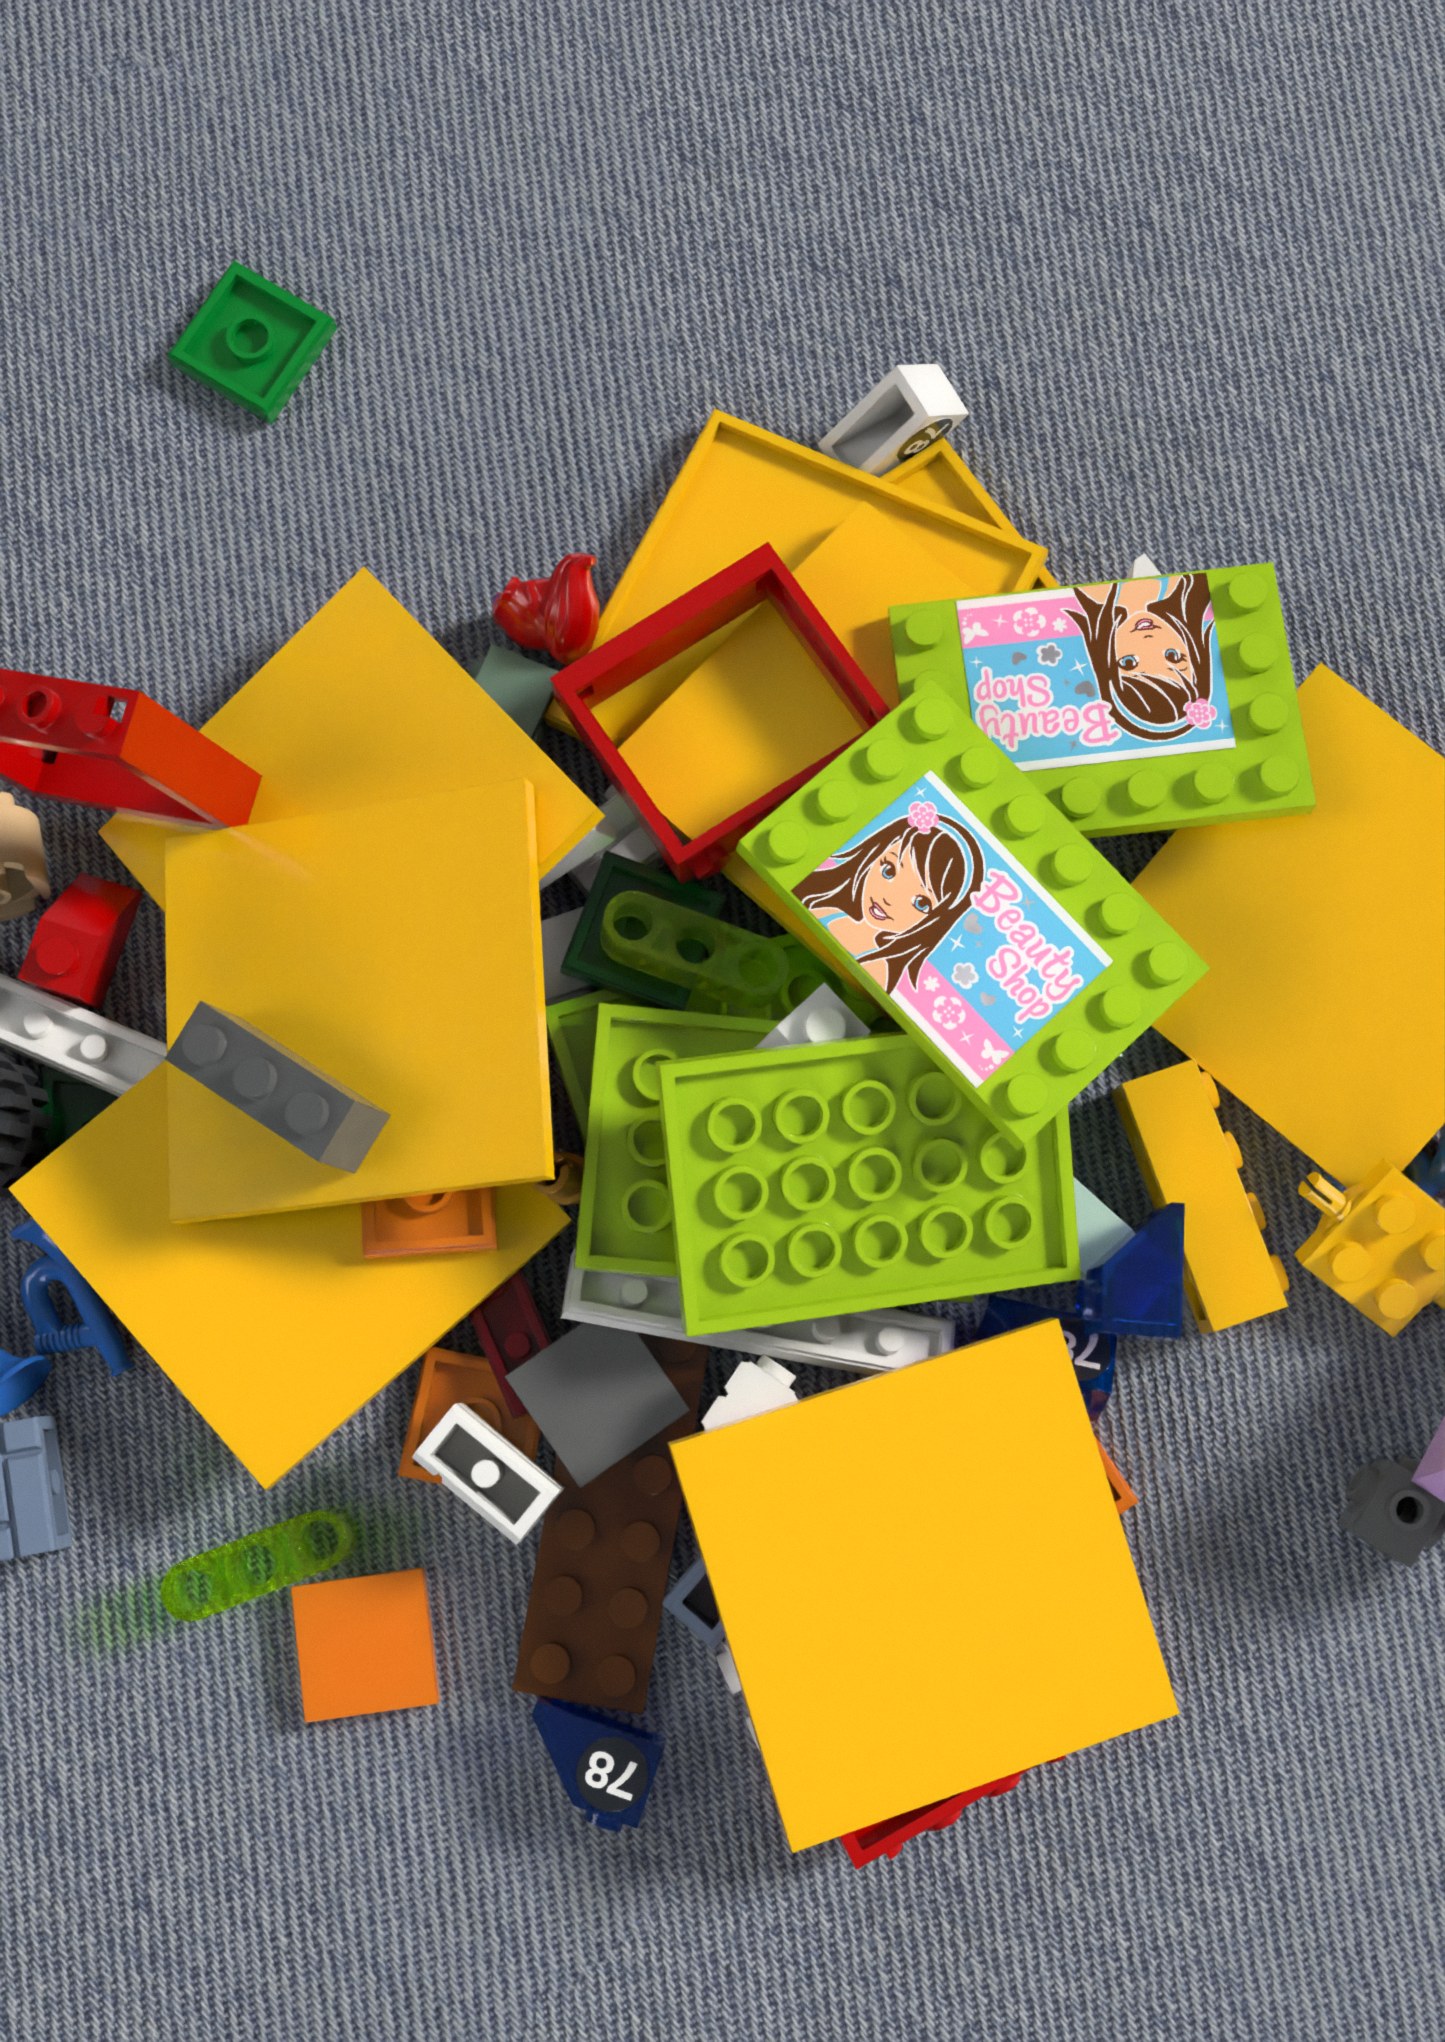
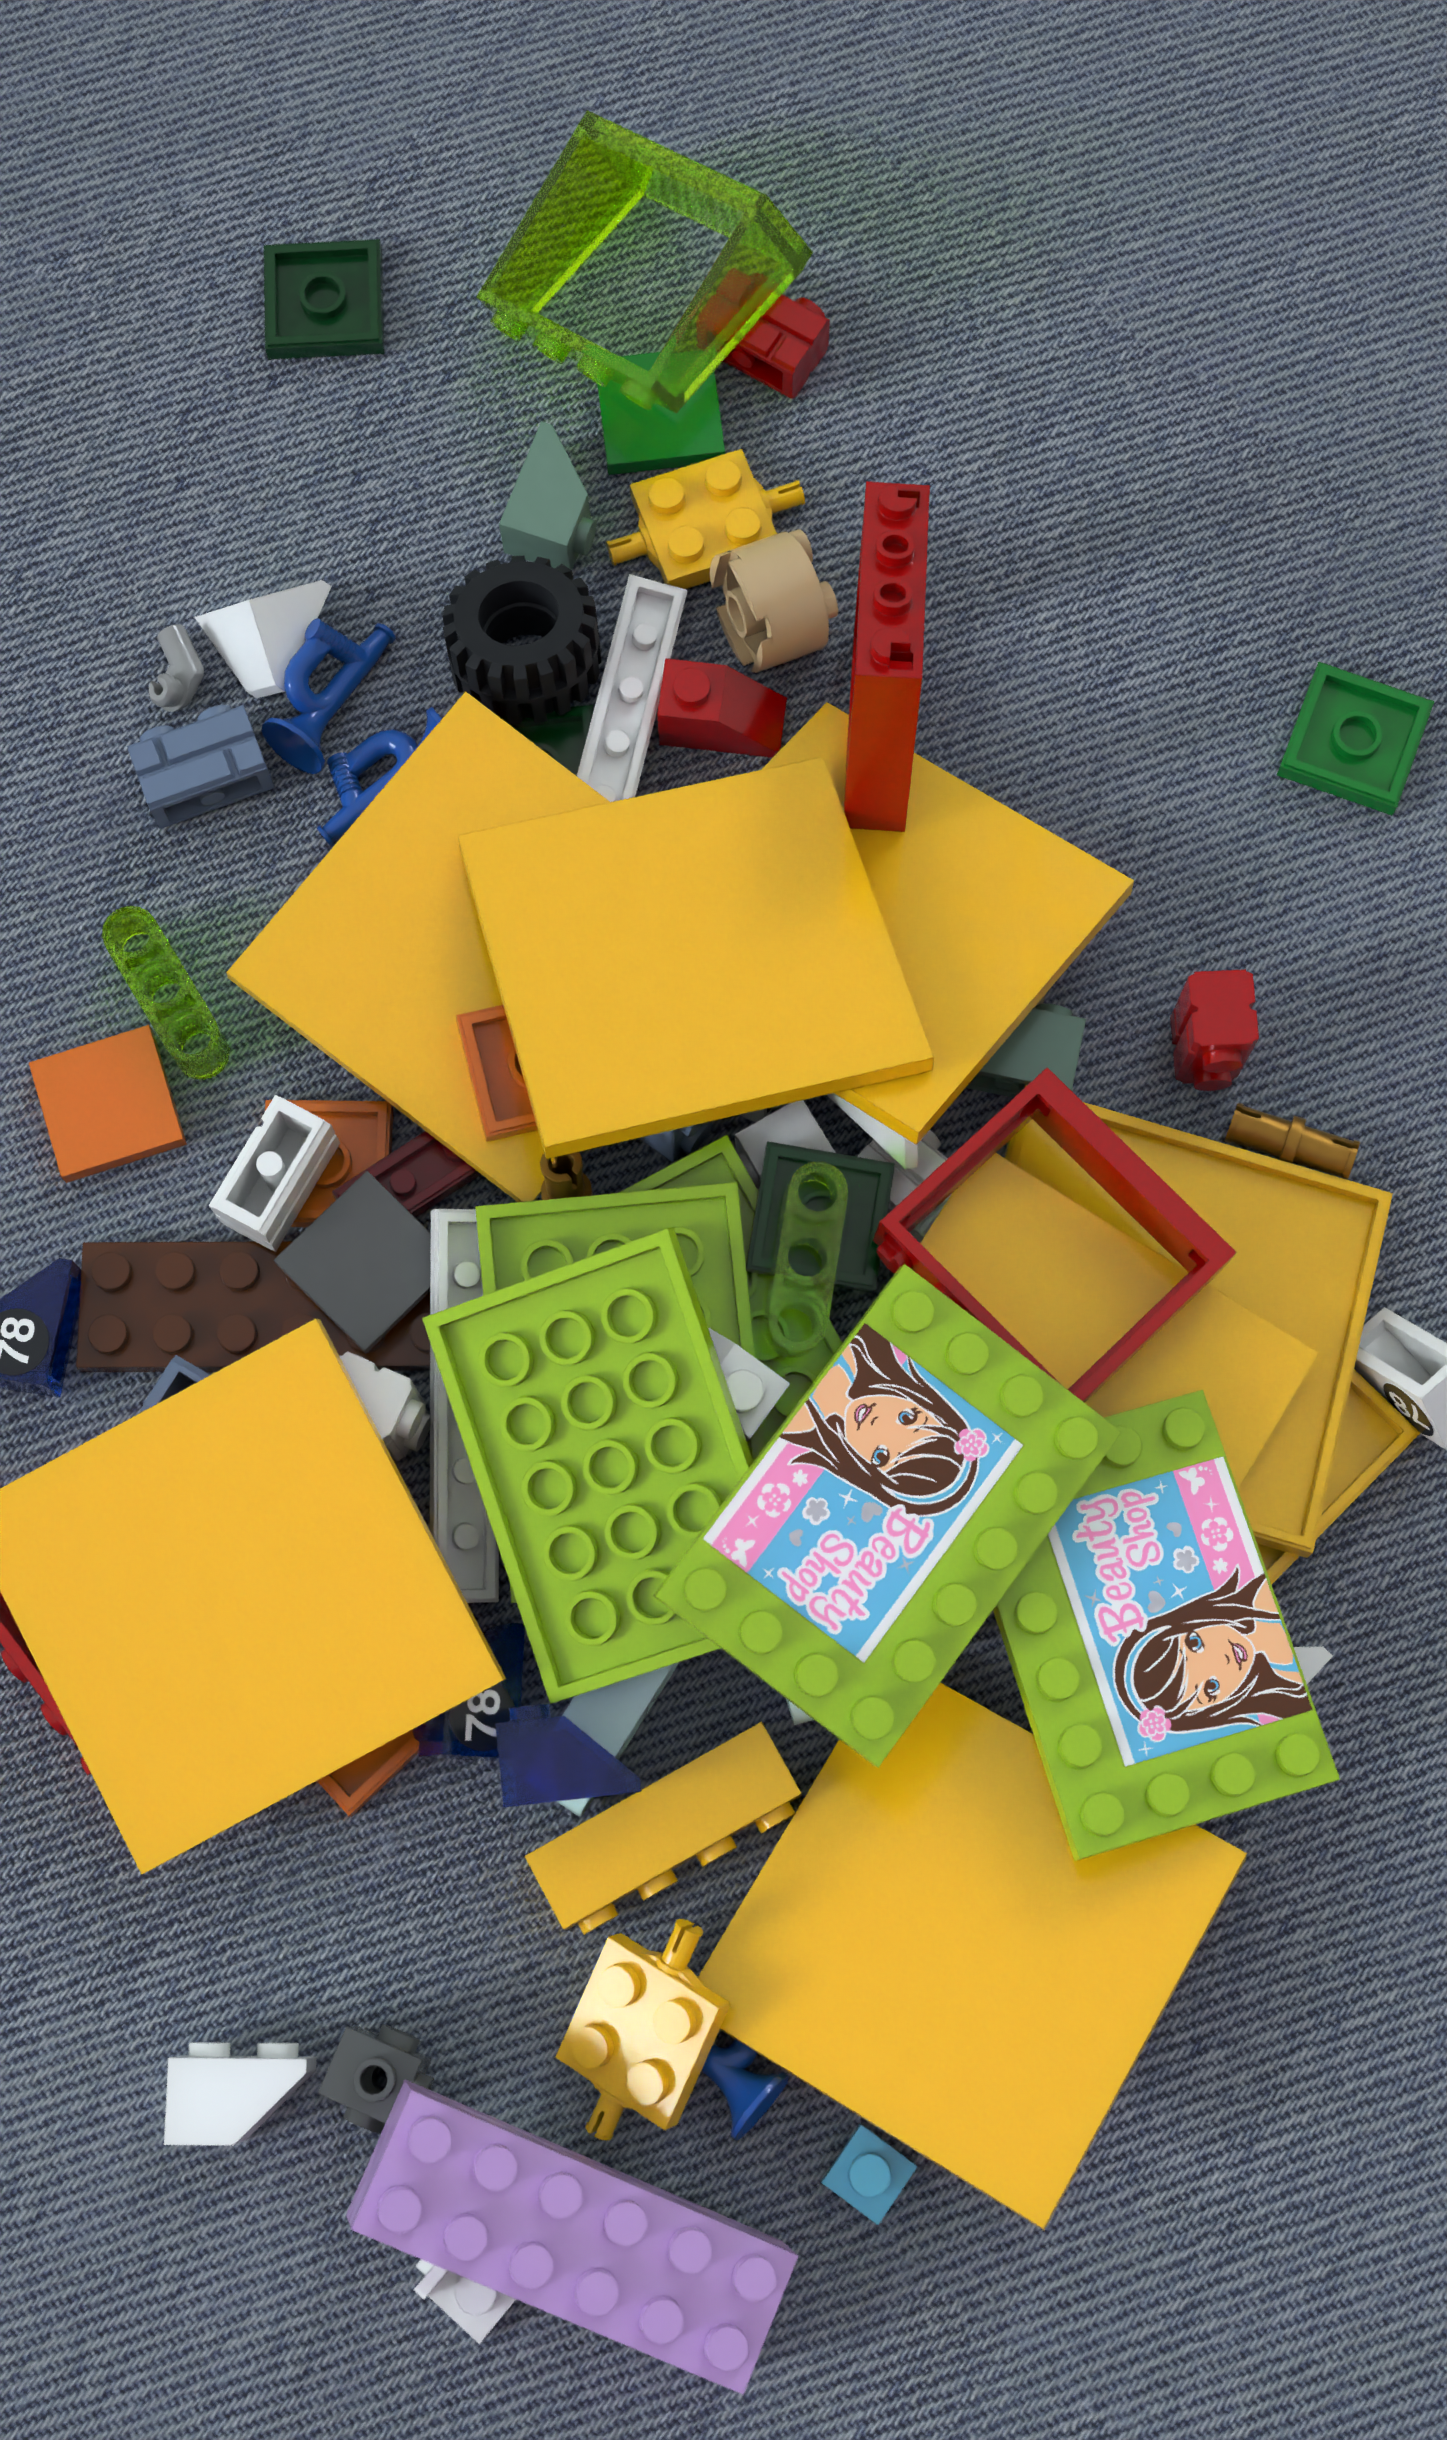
camera: 80 degrees right, 5 degrees down
(277, 1087) = (590, 895): dark grey brick -> none
(526, 524) = (1214, 1028): none -> red brick
(552, 612) = (1130, 1072): red hair -> none
(645, 487) = (1292, 1141): none -> pearl gold pin
(1387, 1656) = (229, 2097): none -> white slope

